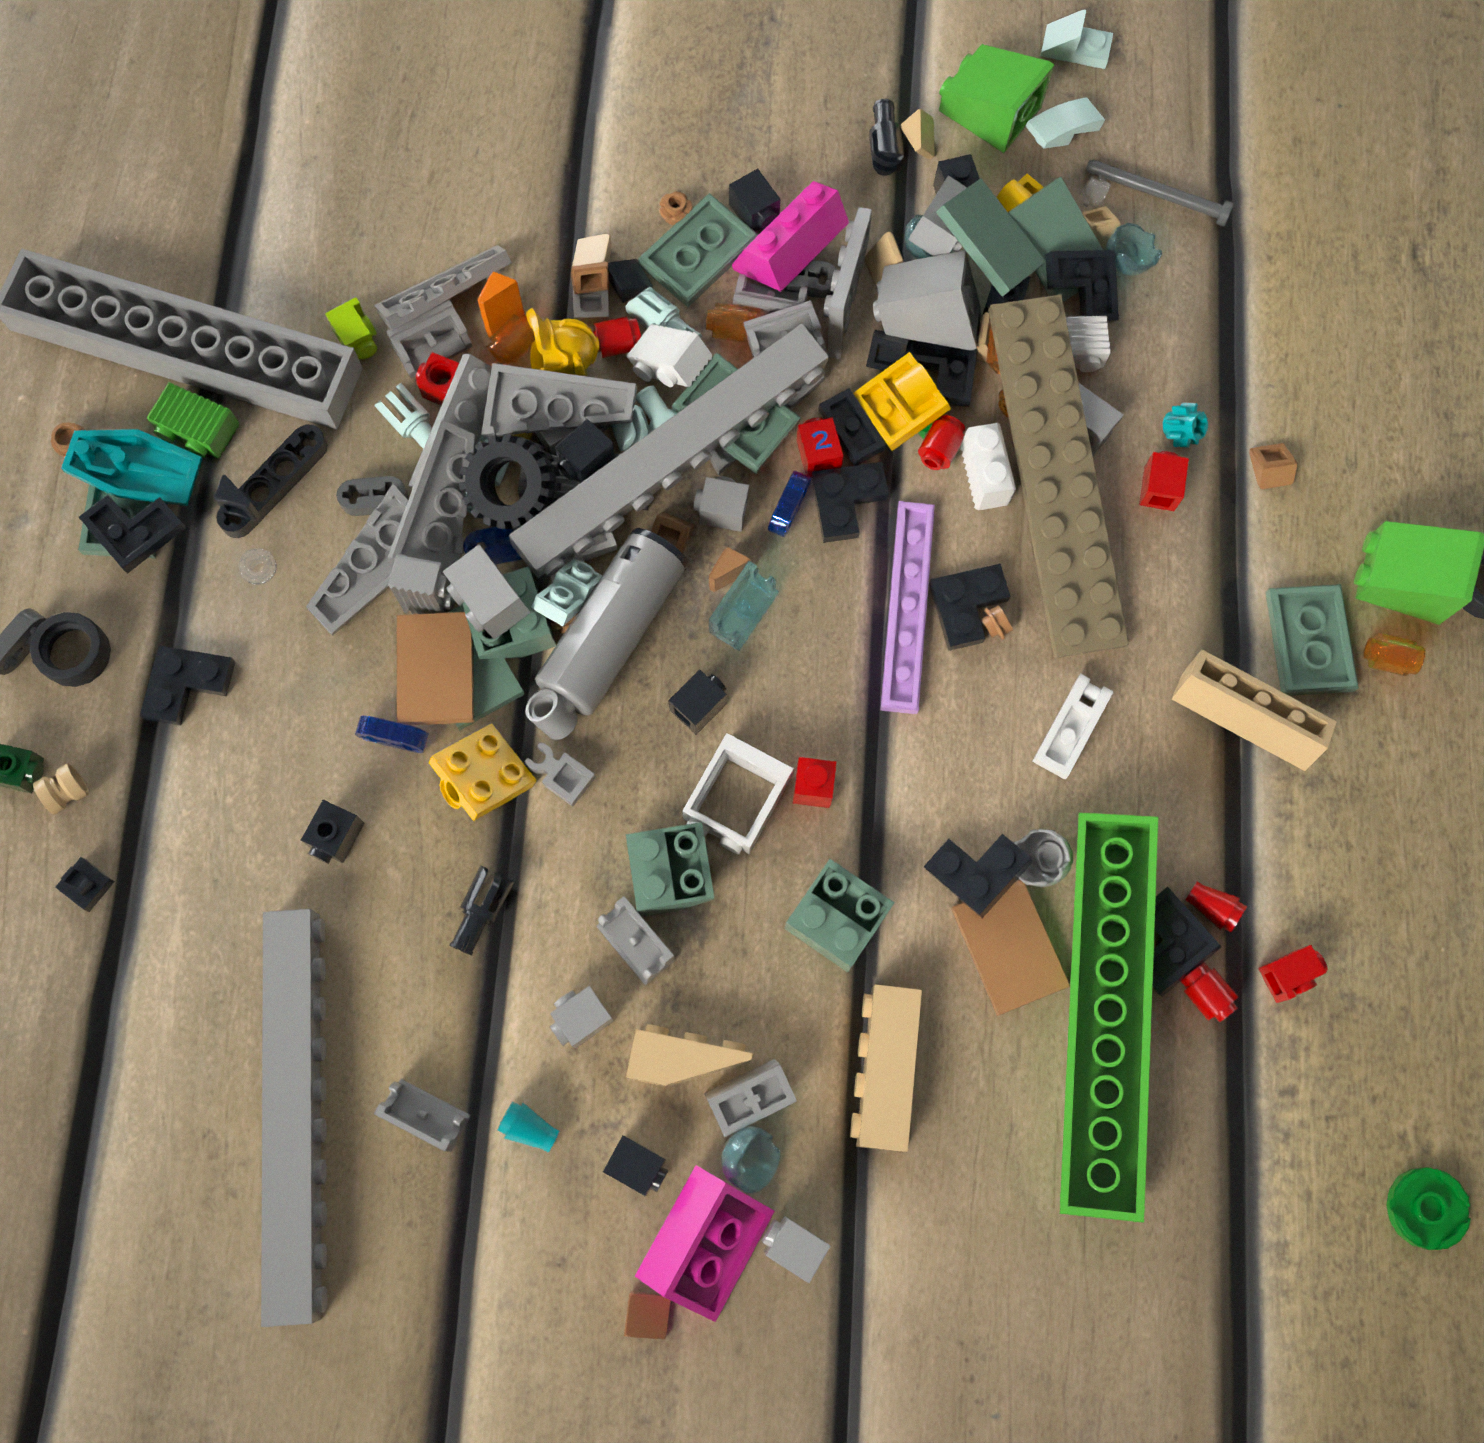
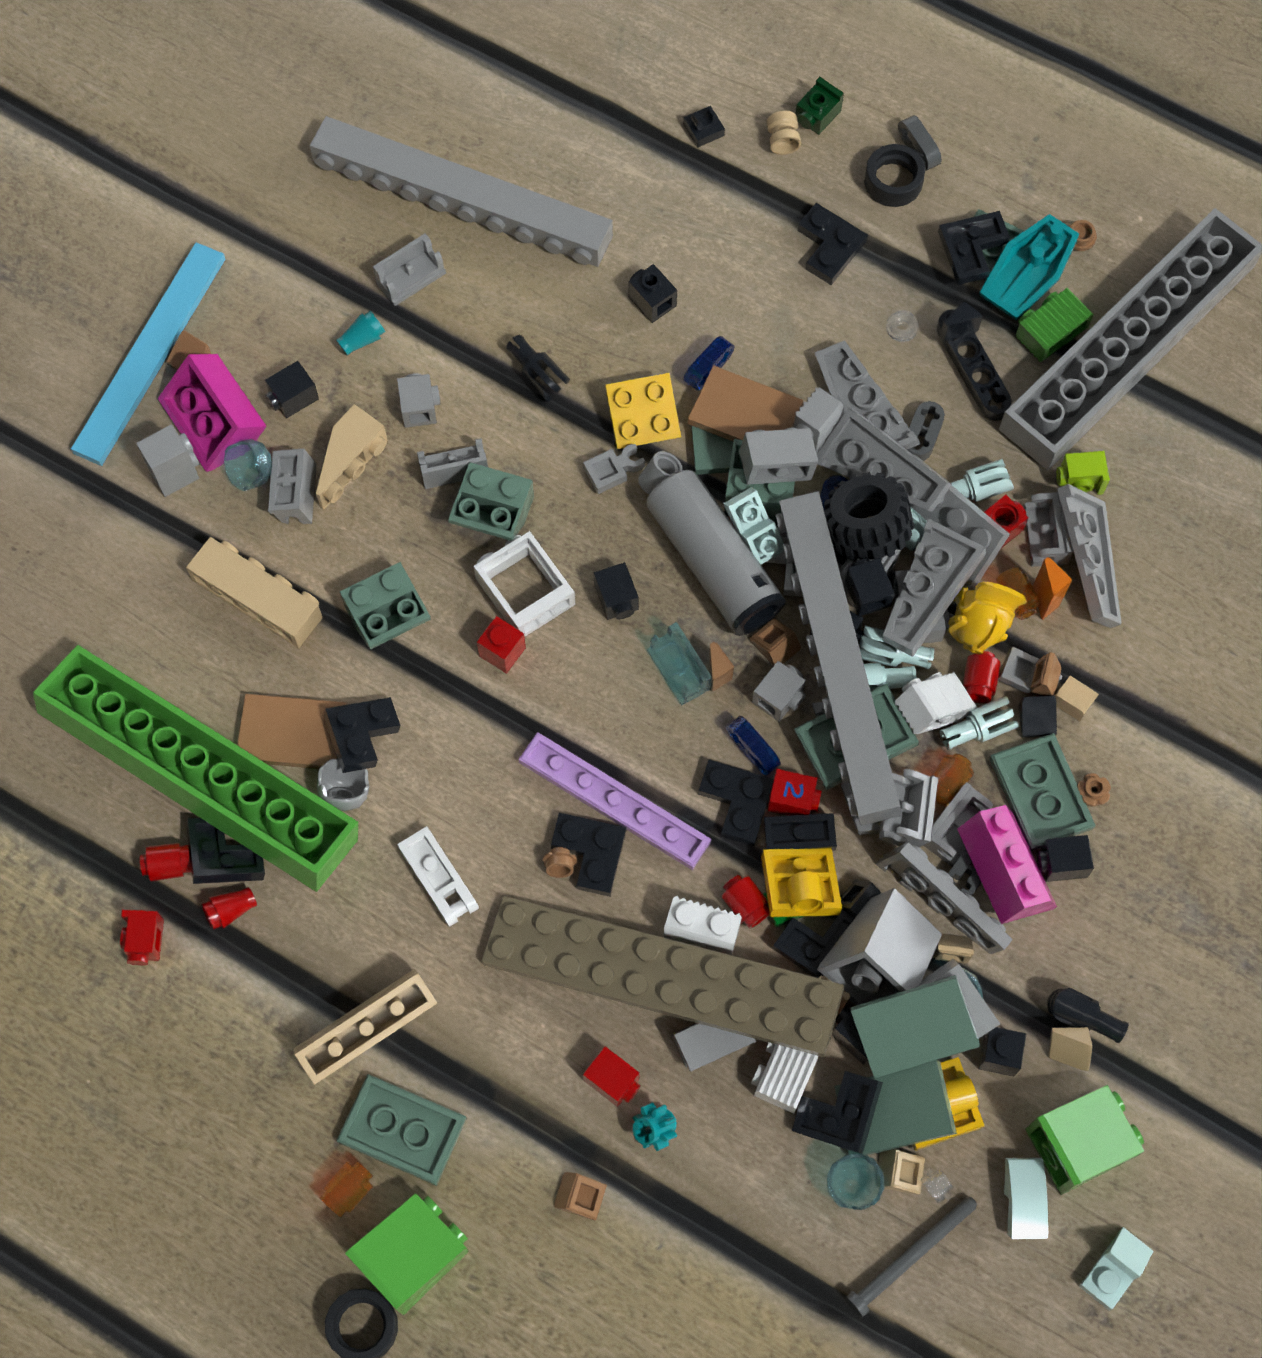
camera: 120 degrees right, 5 degrees down
(663, 1367) = (148, 354): none -> medium azure tile

